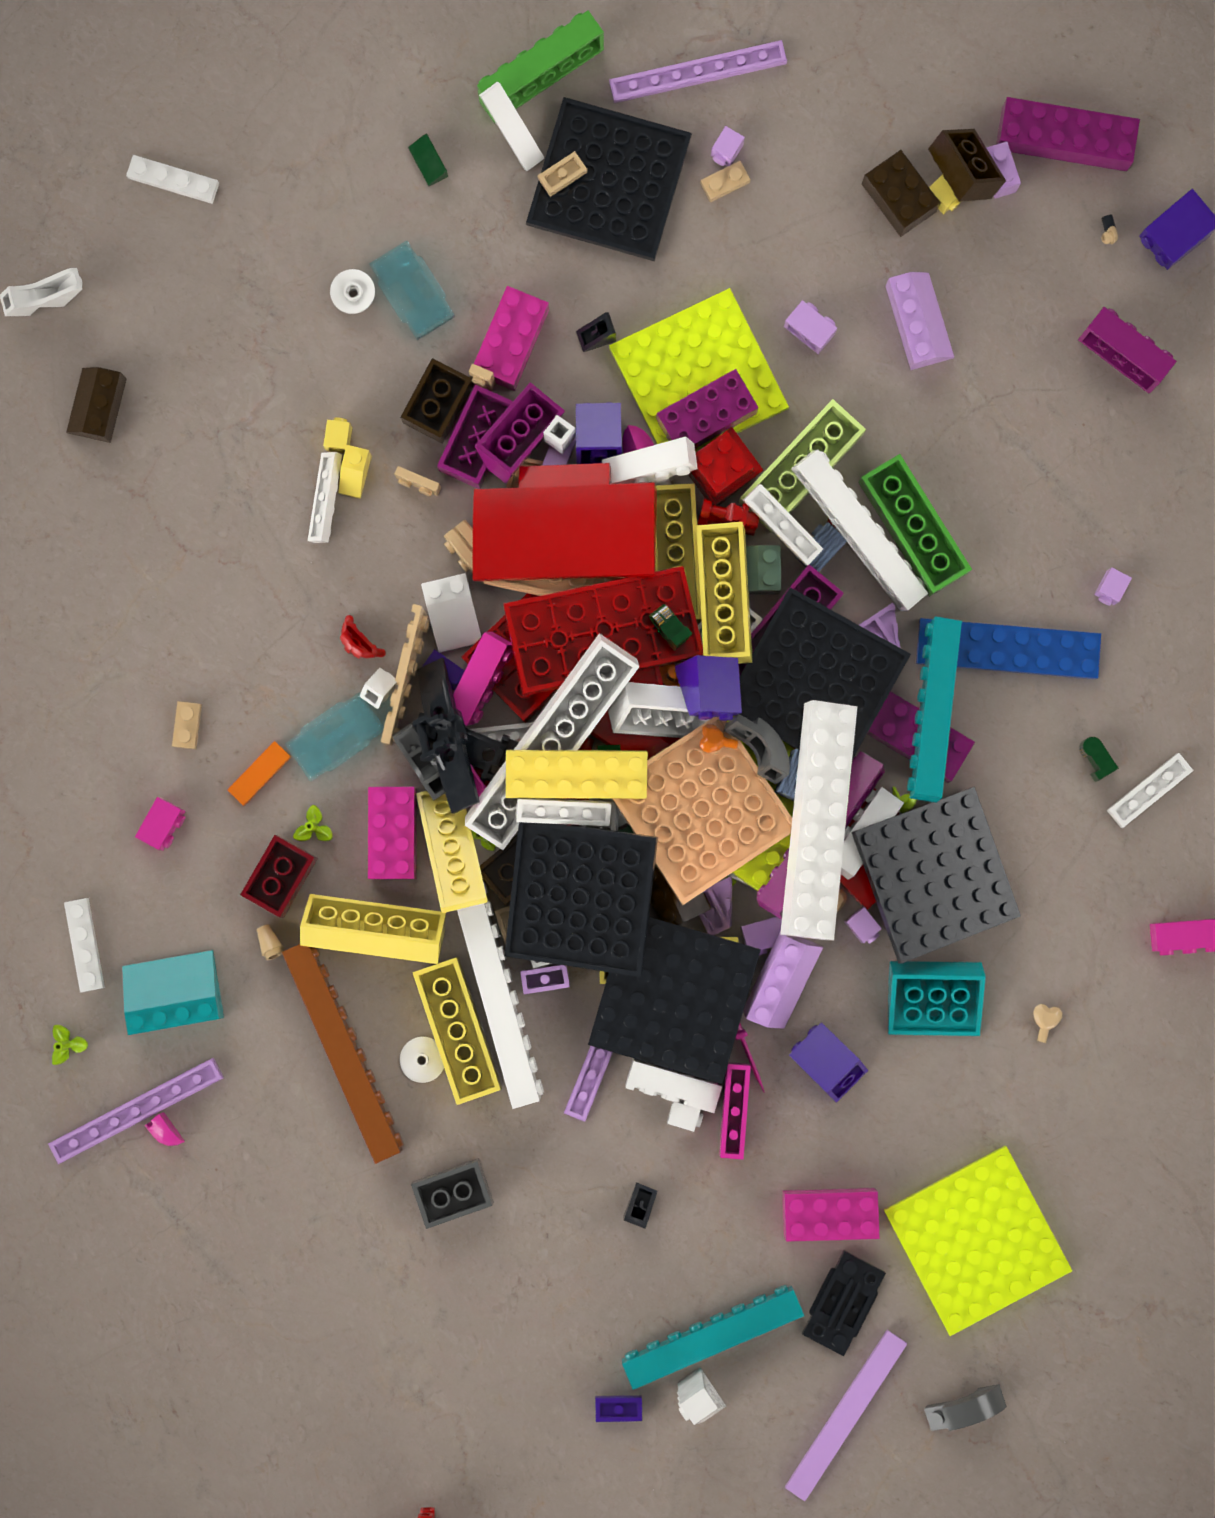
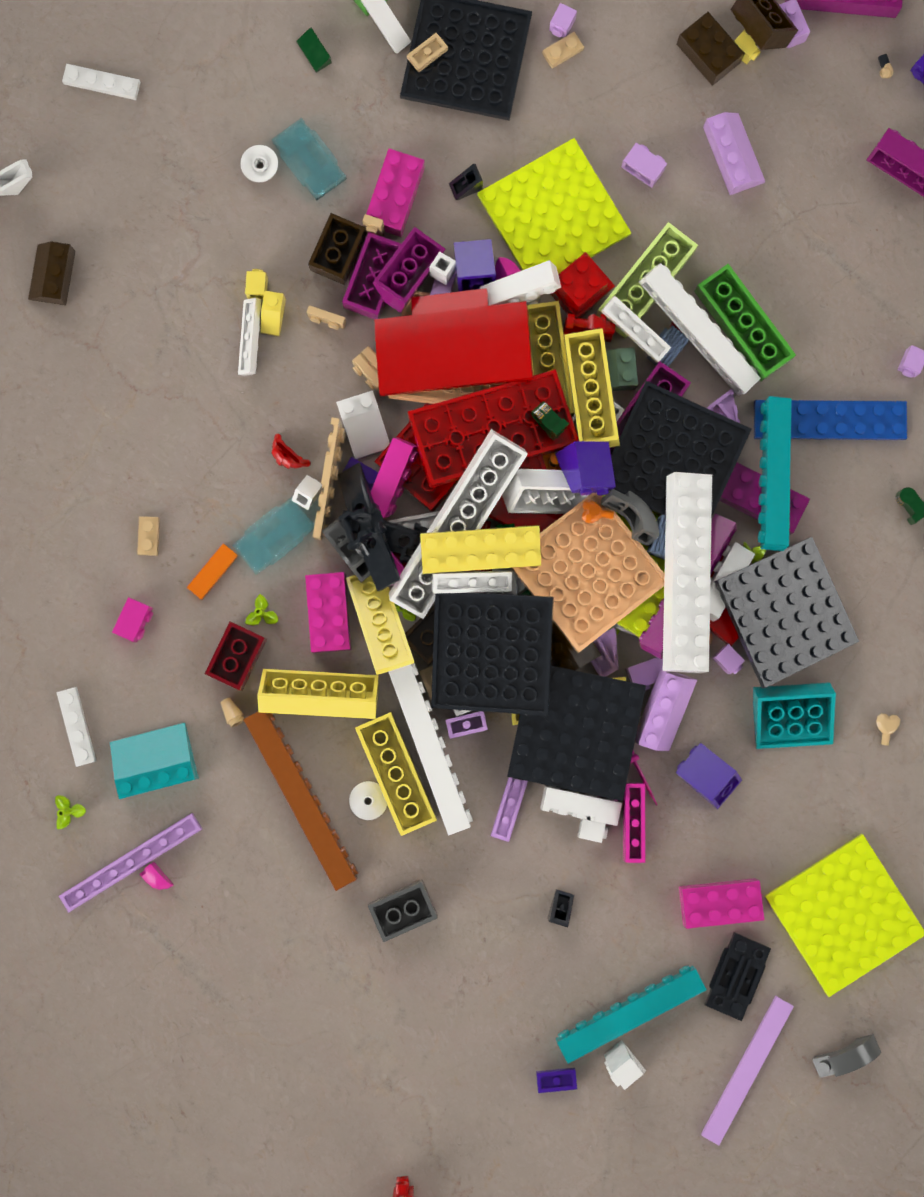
camera: 10 degrees left, 0 degrees up
(709, 410) = (566, 239): magenta brick -> none

